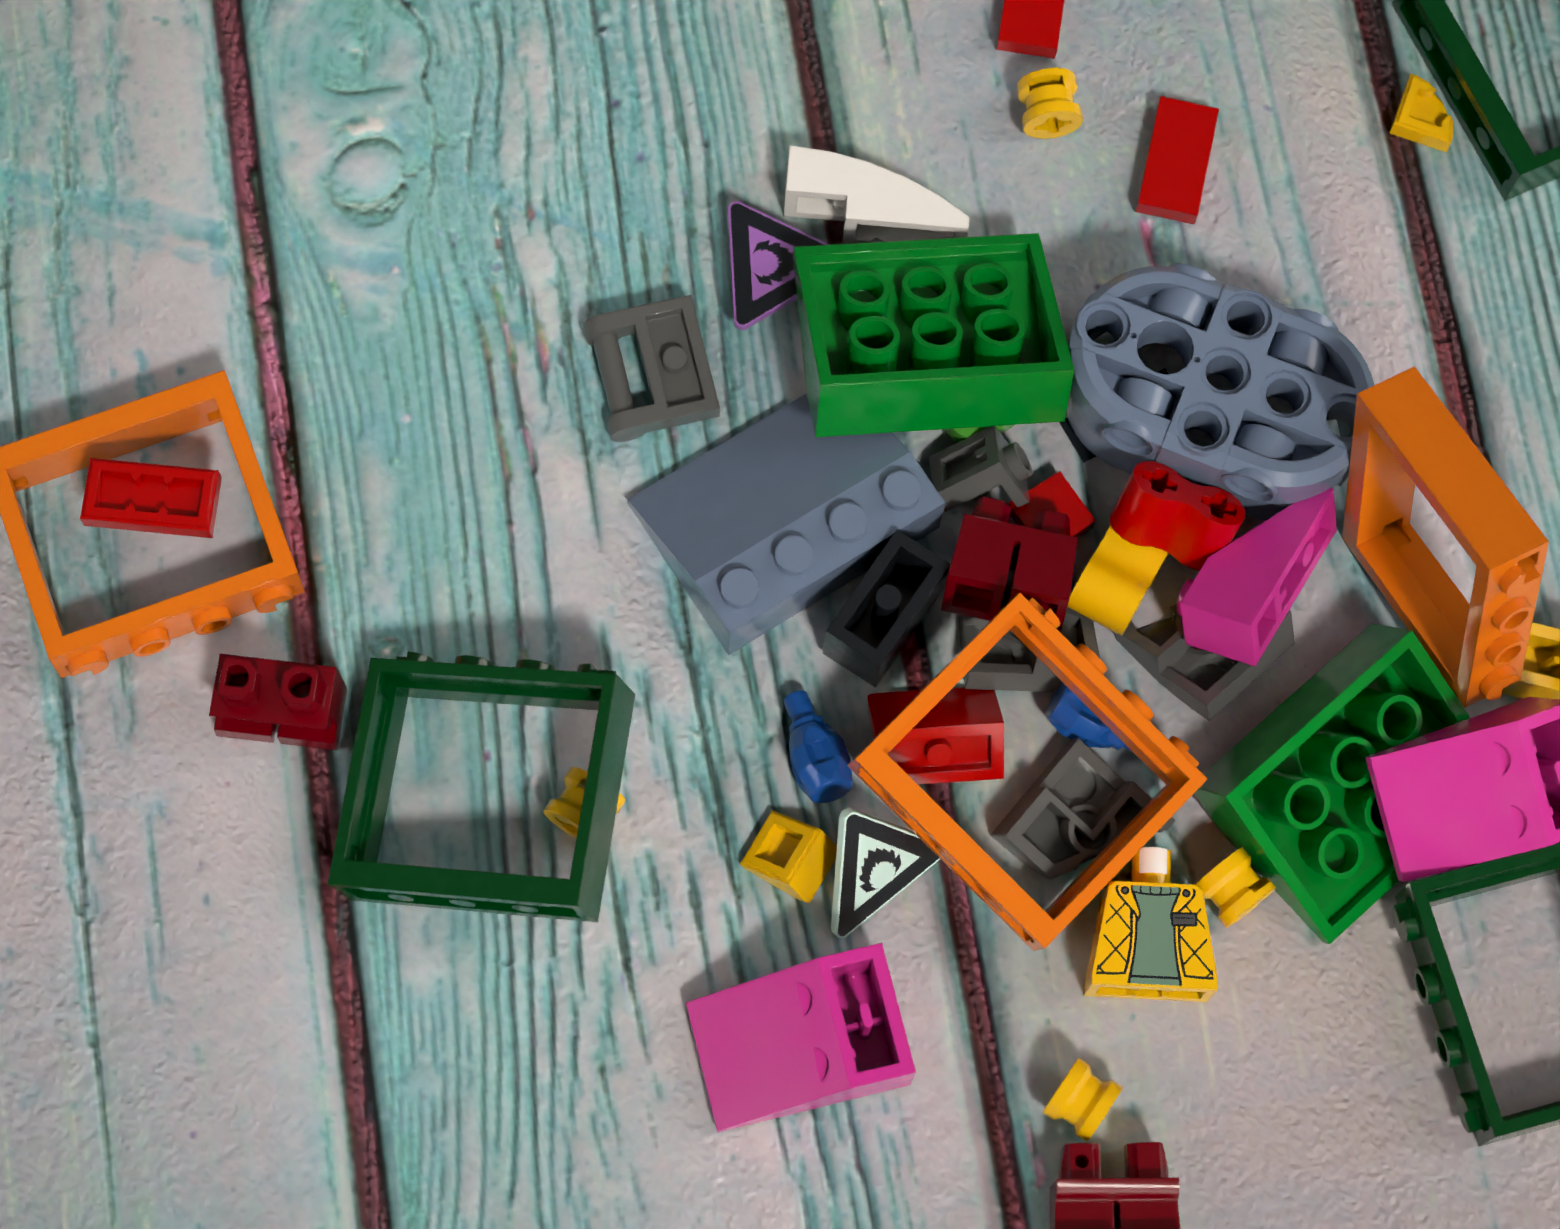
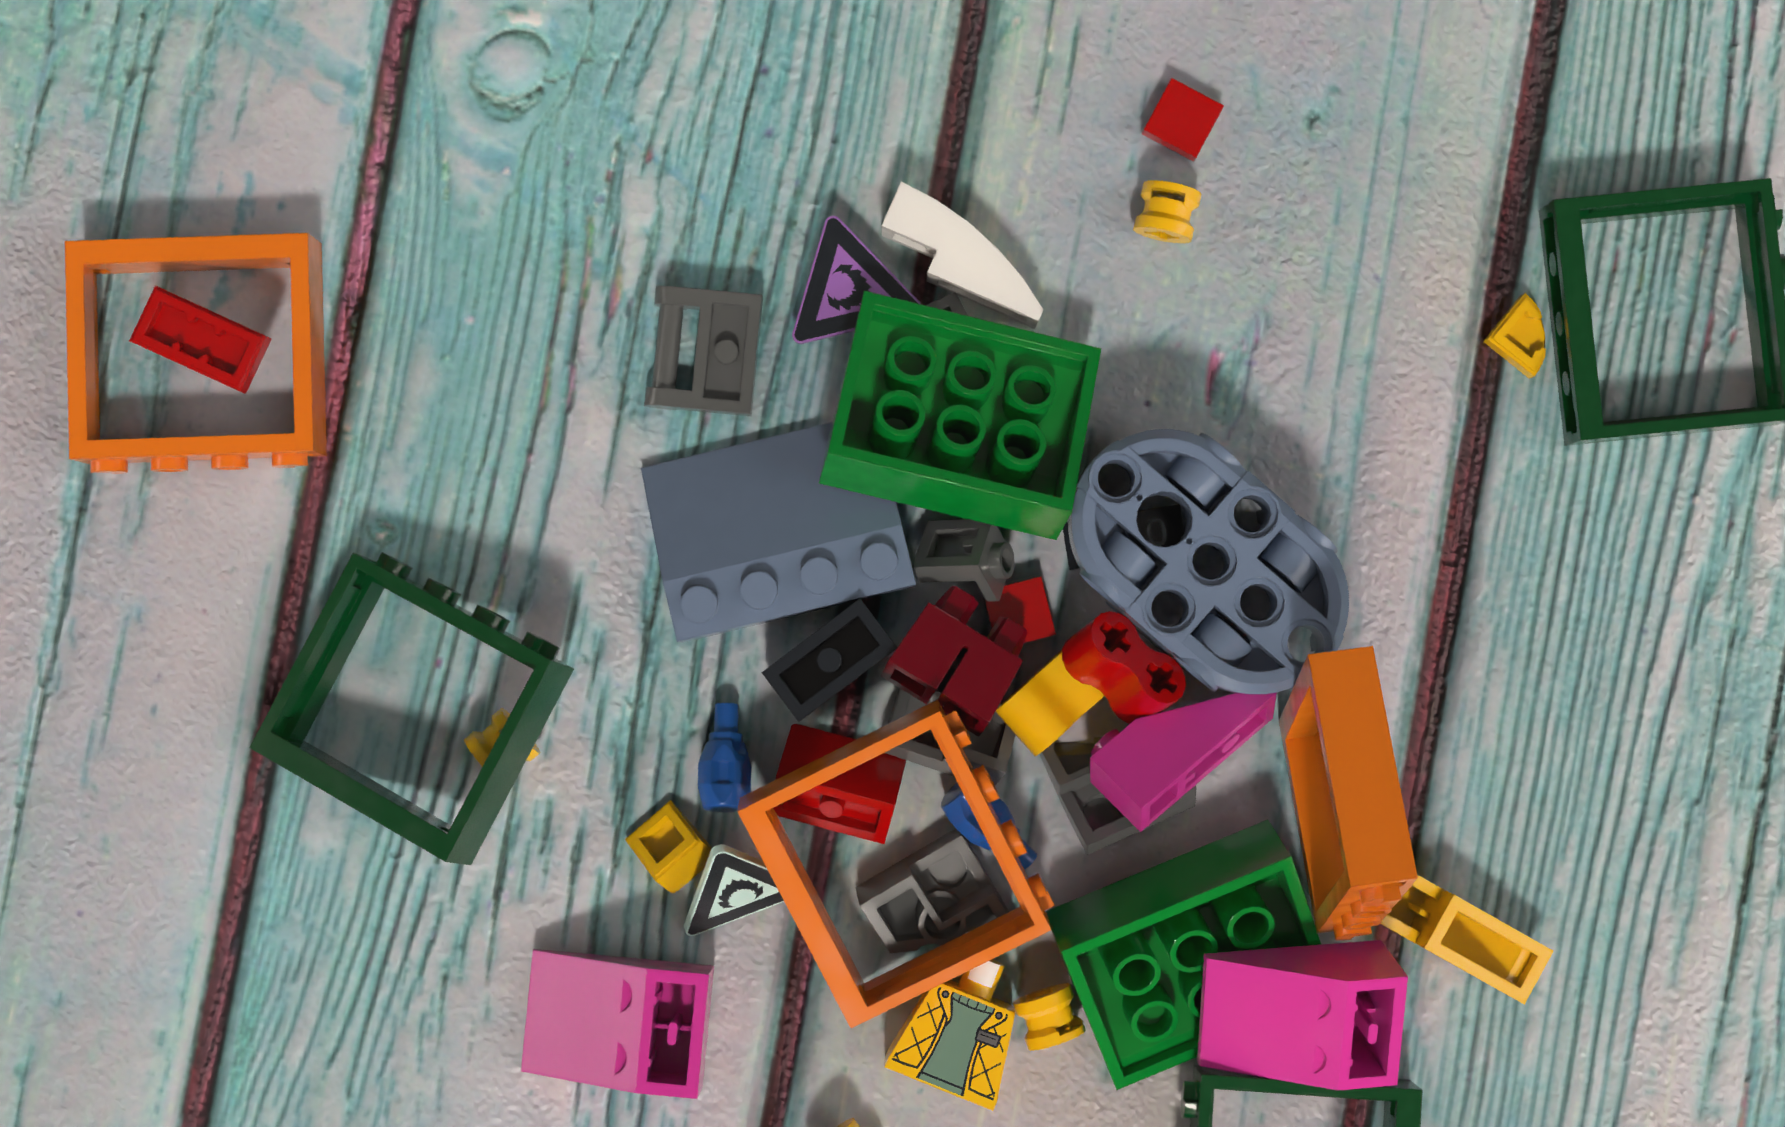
camera: 25 degrees right, 15 degrees up
(260, 693) = (262, 560): dark red hips -> none
(1177, 160) = (1268, 305): red tile -> none

